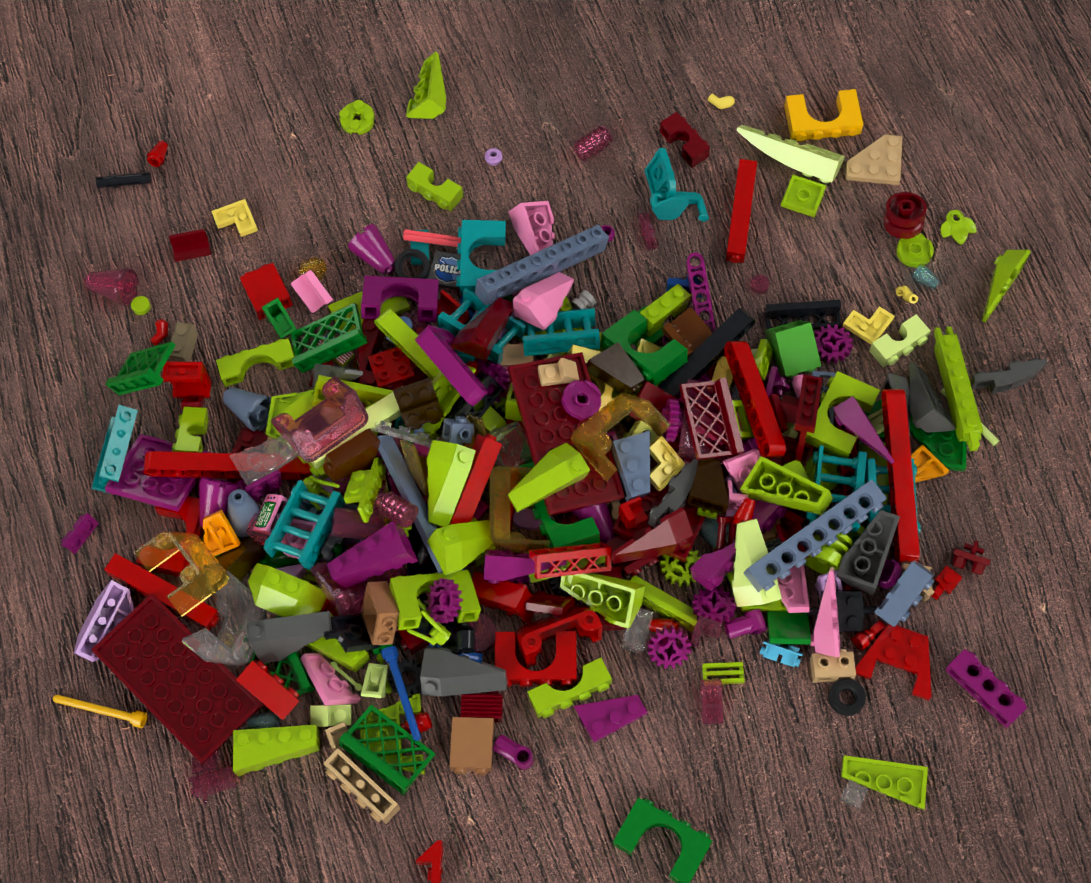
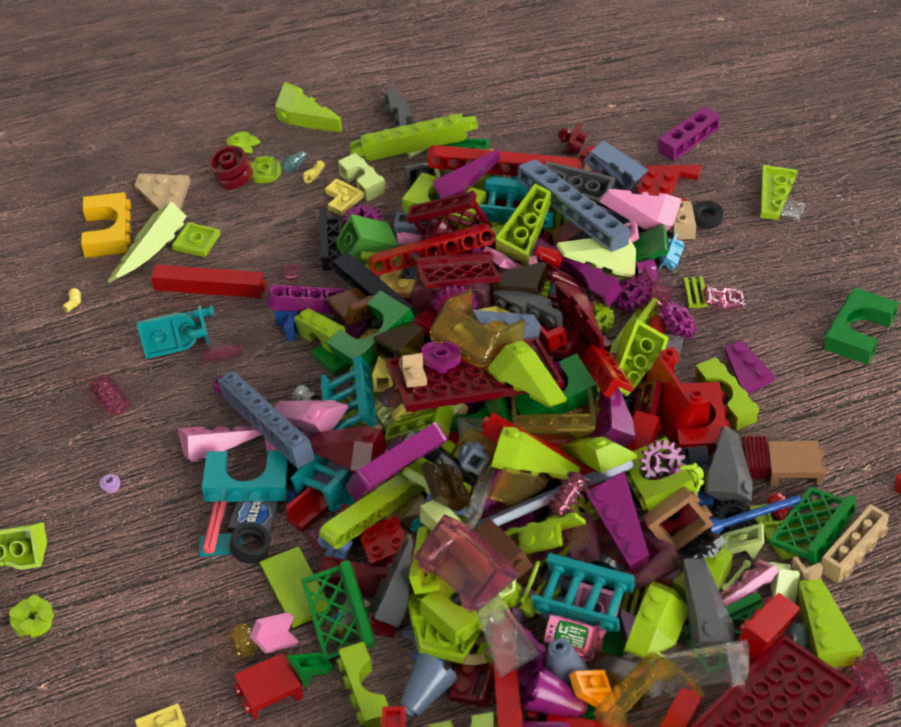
camera: 90 degrees left, 20 degrees down
(373, 249) = (223, 579): magenta cone -> none
(379, 289) = (286, 525): magenta arch -> none
(445, 195) = (134, 544): lime arch -> none
(512, 751) = (798, 427): magenta piece -> none
(677, 128) = (126, 316): dark red arch -> none
(925, 404) = (420, 154): dark grey wedge -> none

